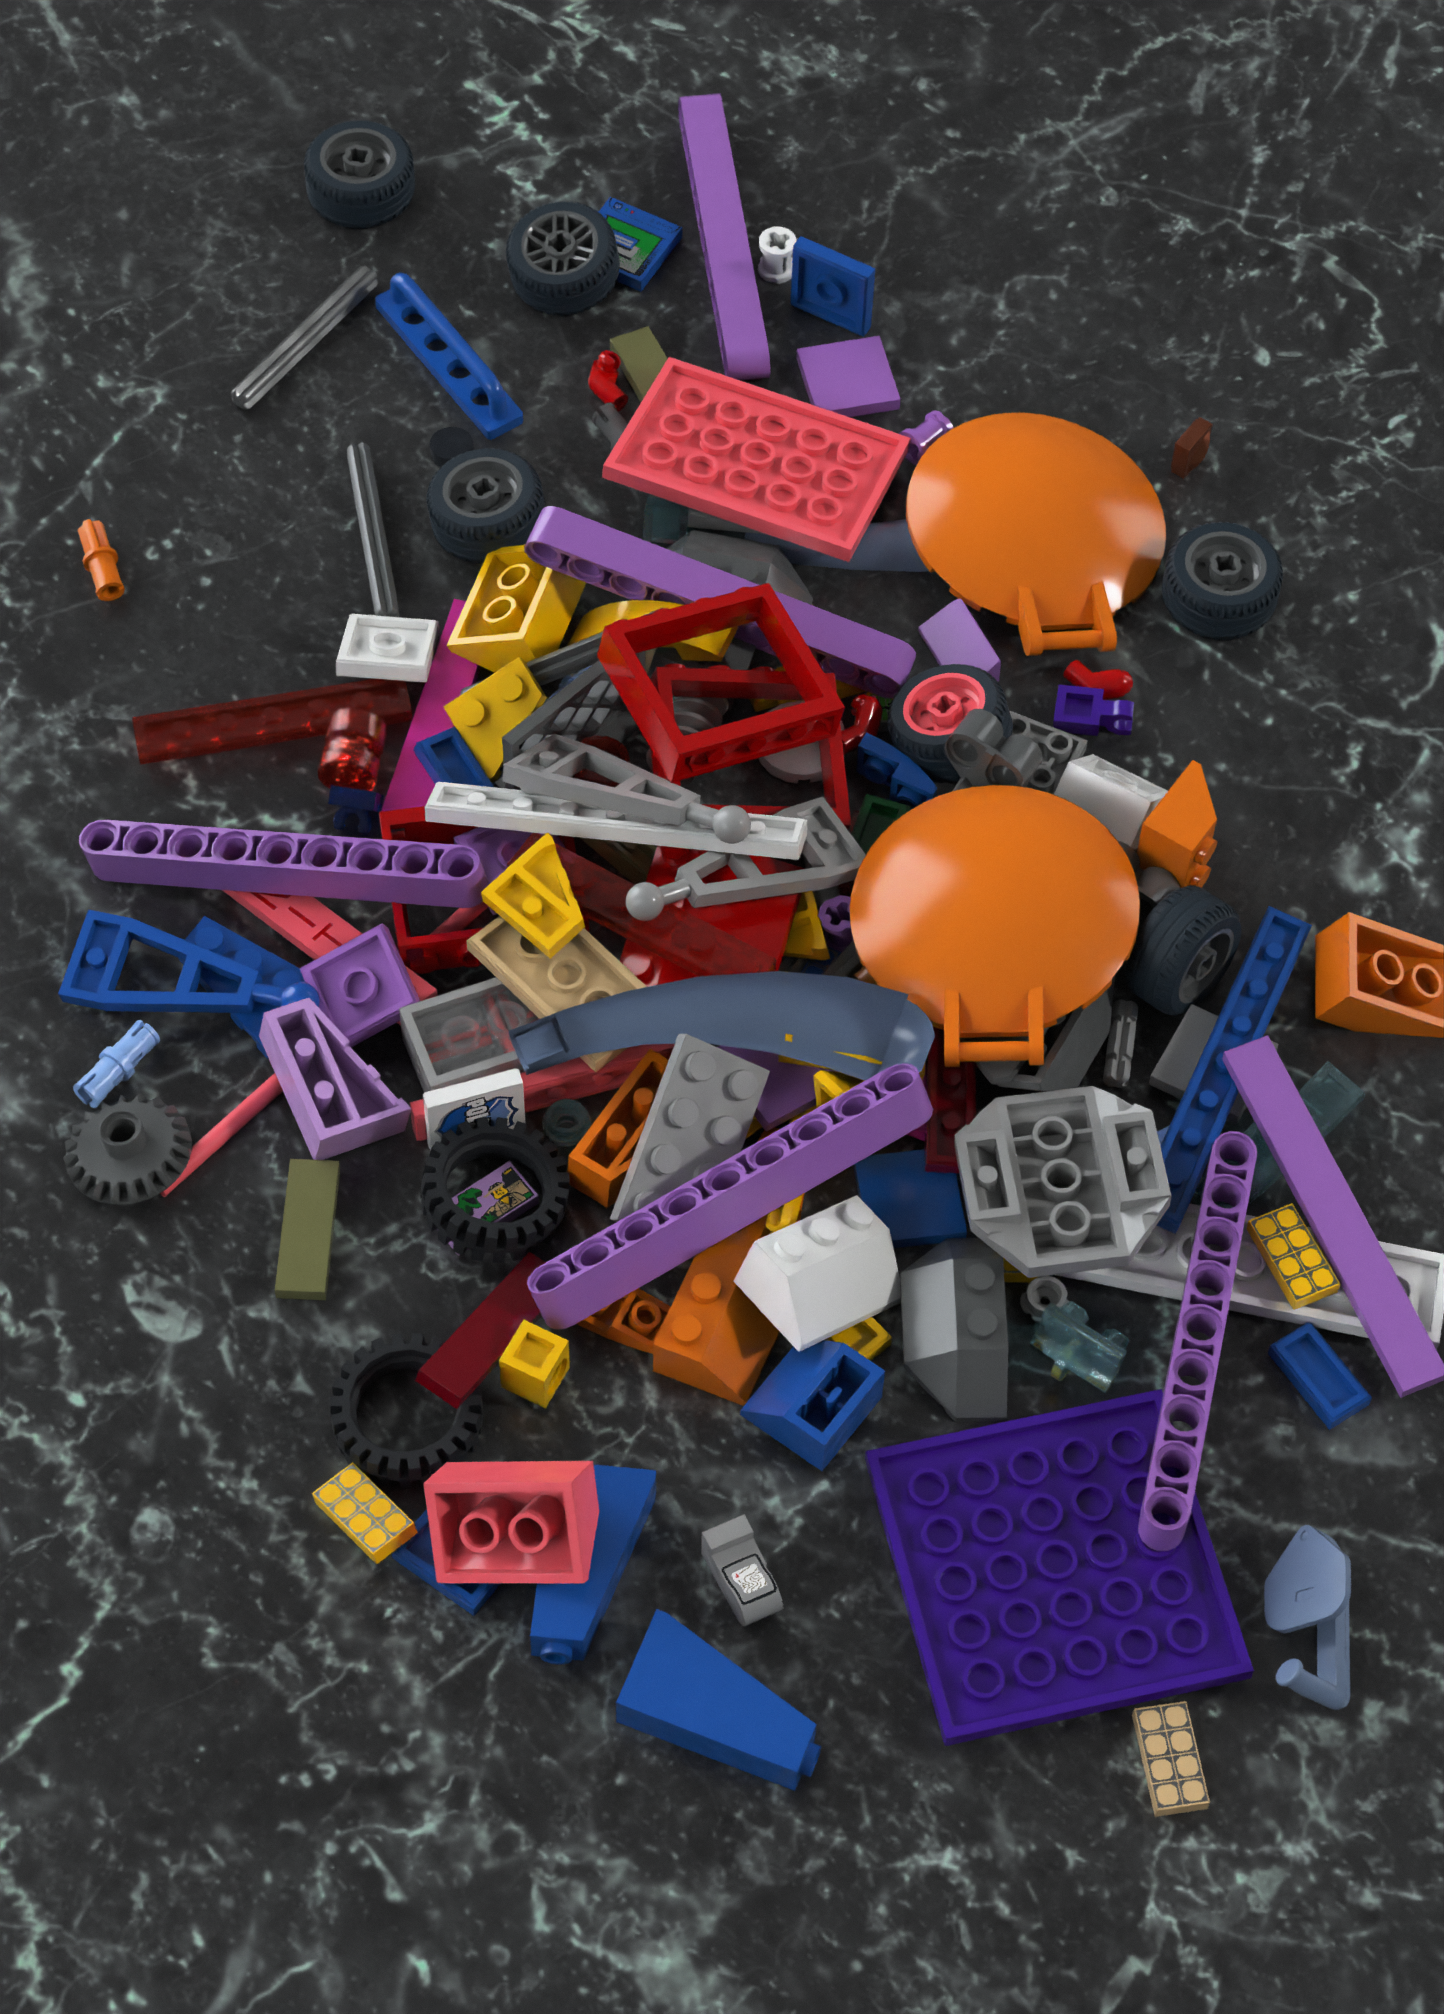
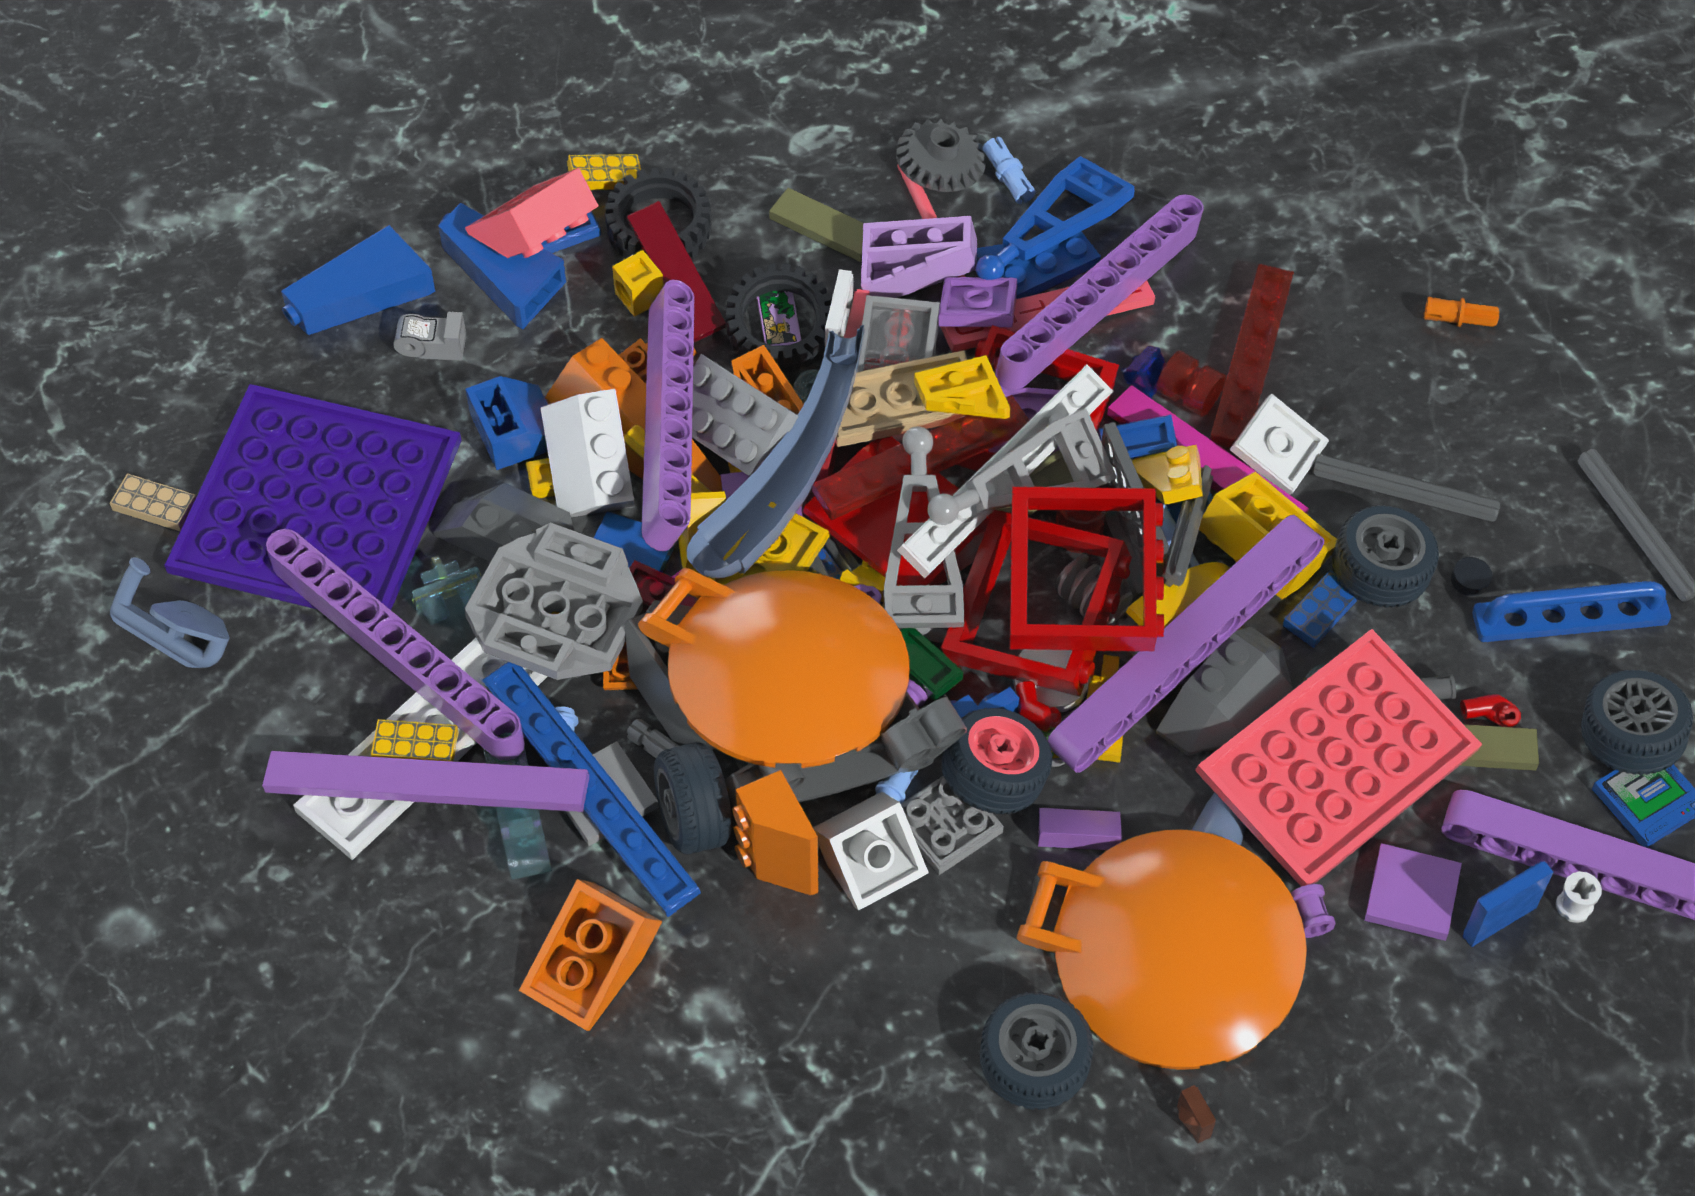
camera: 120 degrees right, 0 degrees up
(1084, 710) = (965, 879): dark purple plate -> none
(1114, 681) = (989, 907): red arm -> none
(1319, 1375) = (330, 730): blue tile -> none

